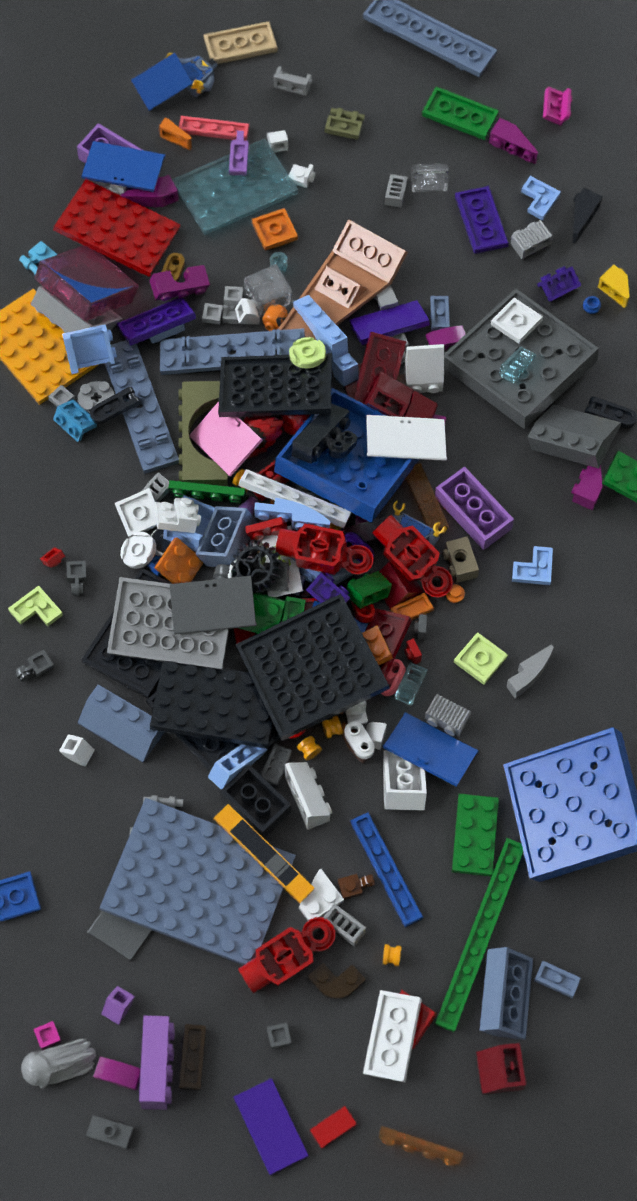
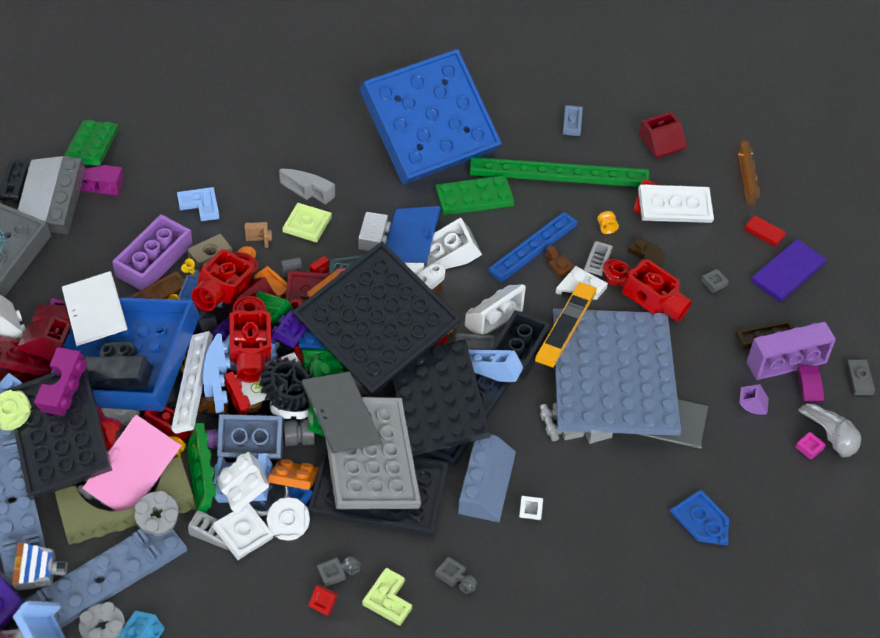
camera: 110 degrees left, 15 degrees down
(114, 406) = (114, 592): black plate -> none
(157, 355) = (35, 567): none -> torso
(172, 439) = (159, 501): none -> light grey plate
(323, 394) = (57, 397): none -> magenta arch
(475, 615) = (257, 232): none -> medium nougat bracket
(506, 993) = (602, 147): sand blue slope -> none

